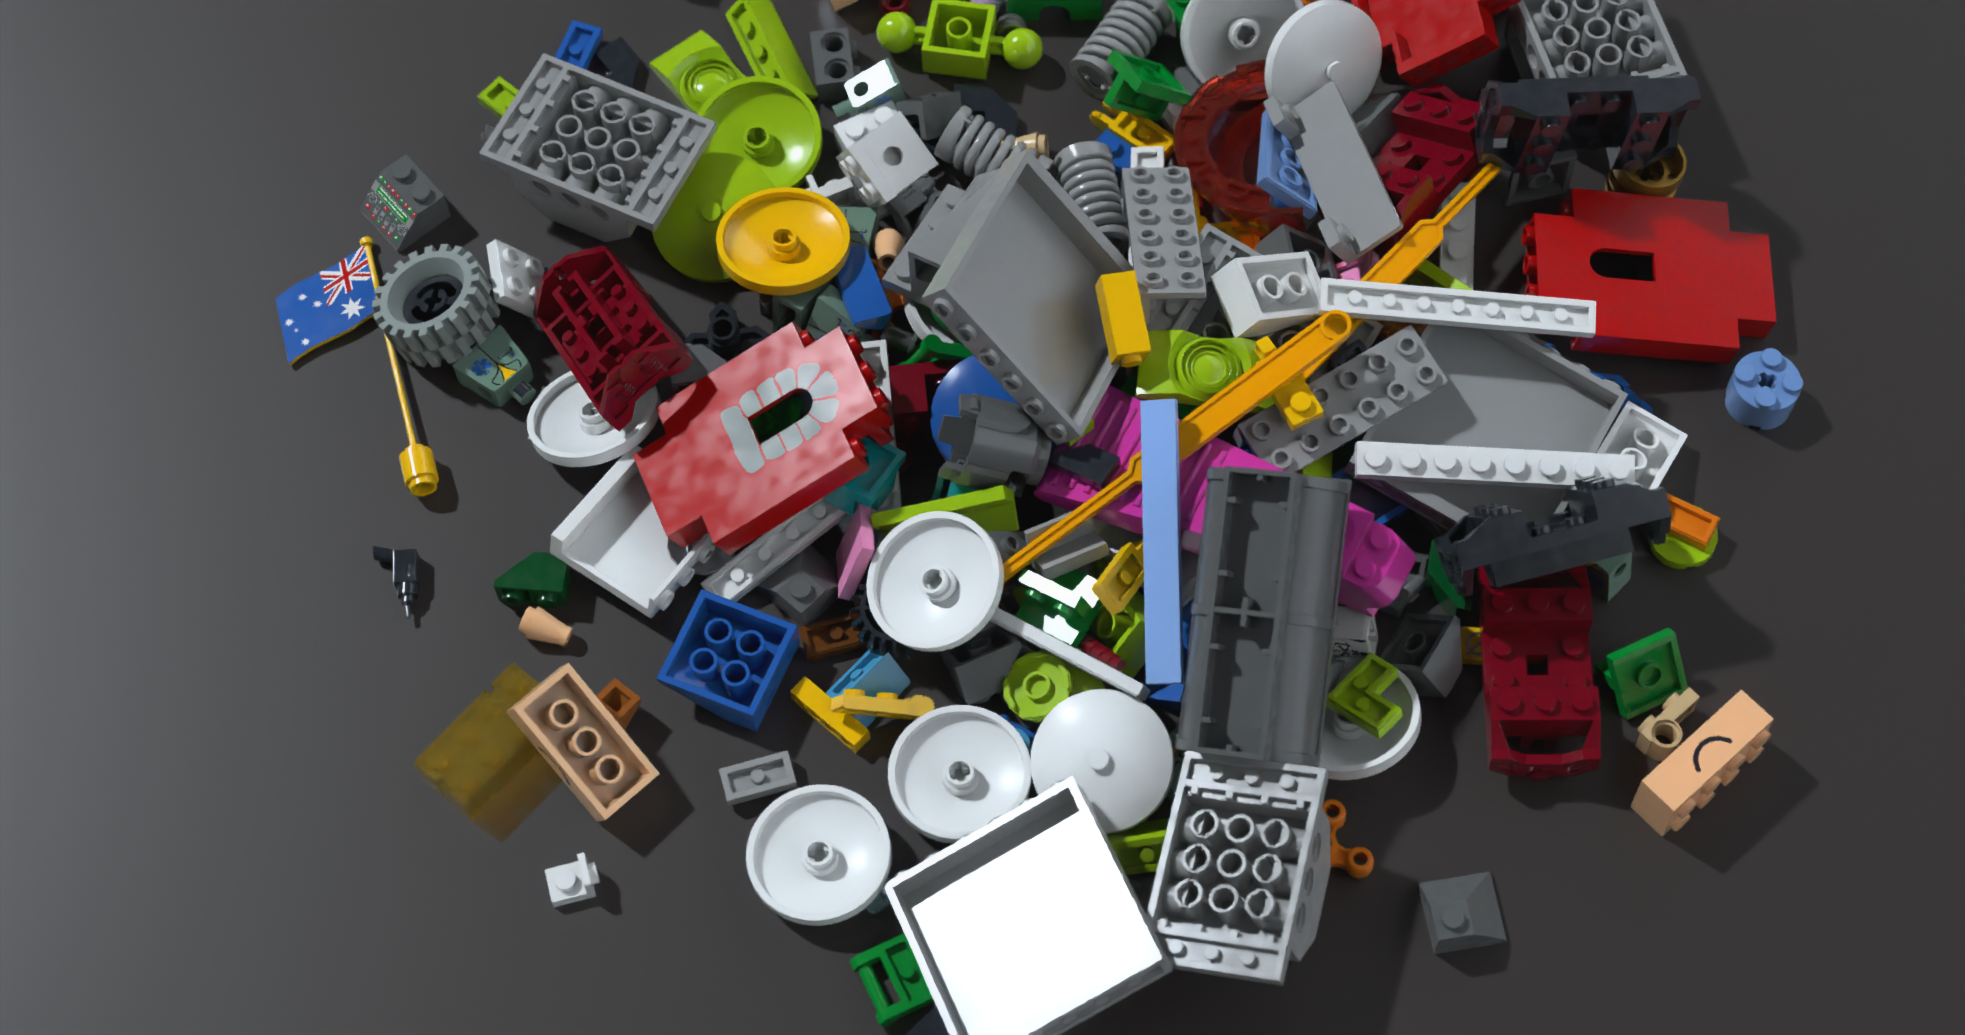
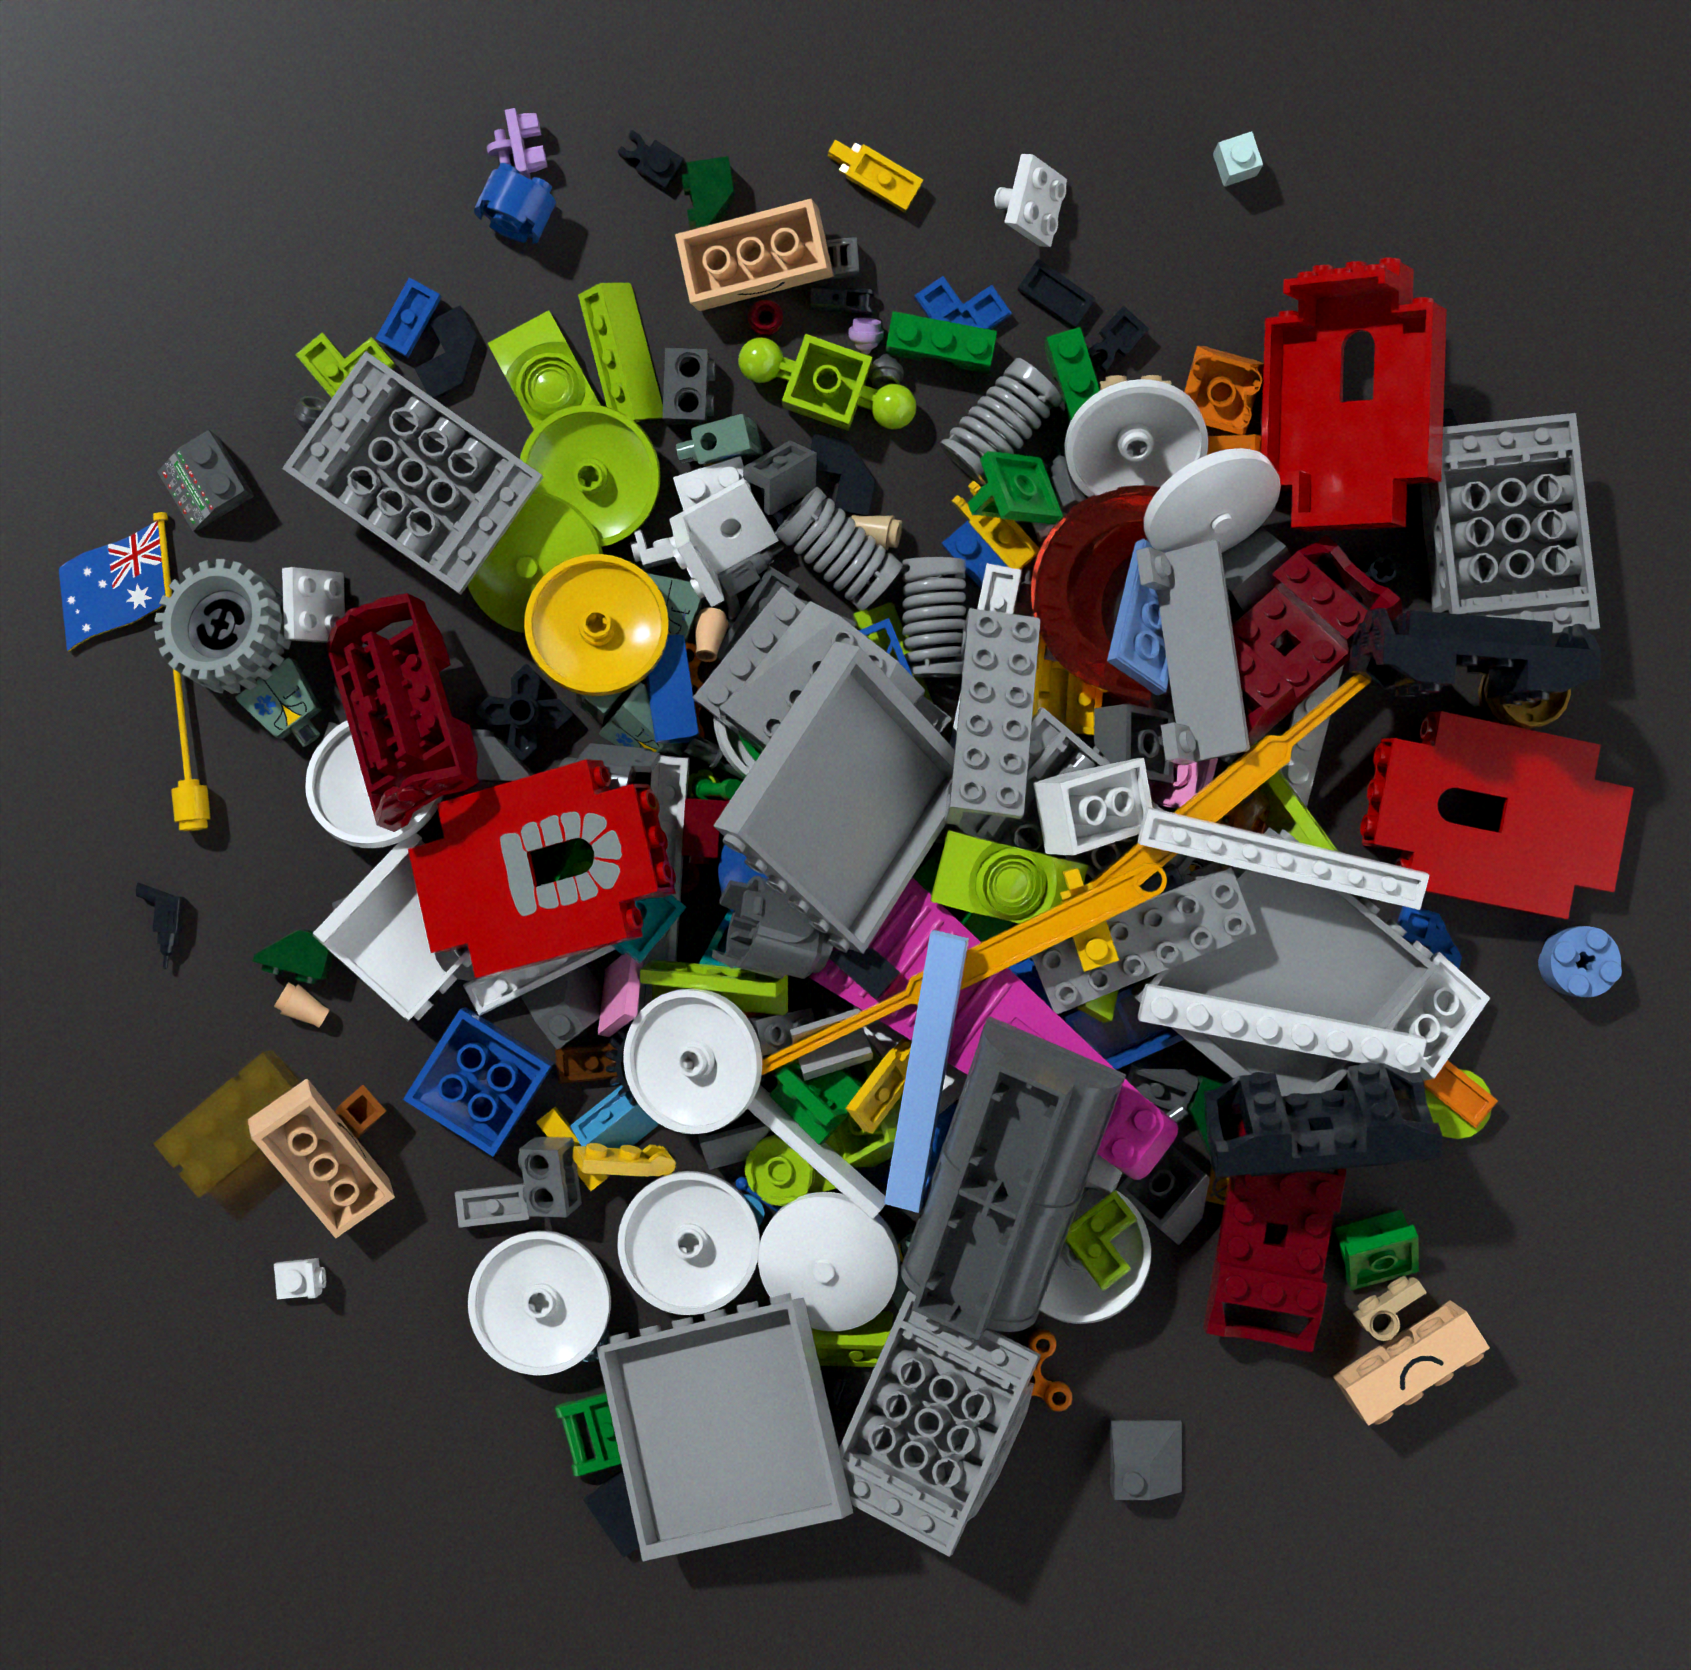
camera: 10 degrees right, 25 degrees up
(820, 730) = (556, 1176): none -> dark grey brick
(1093, 647) = (844, 1149): dark red animal -> none
(1123, 318) = (930, 828): yellow brick -> none

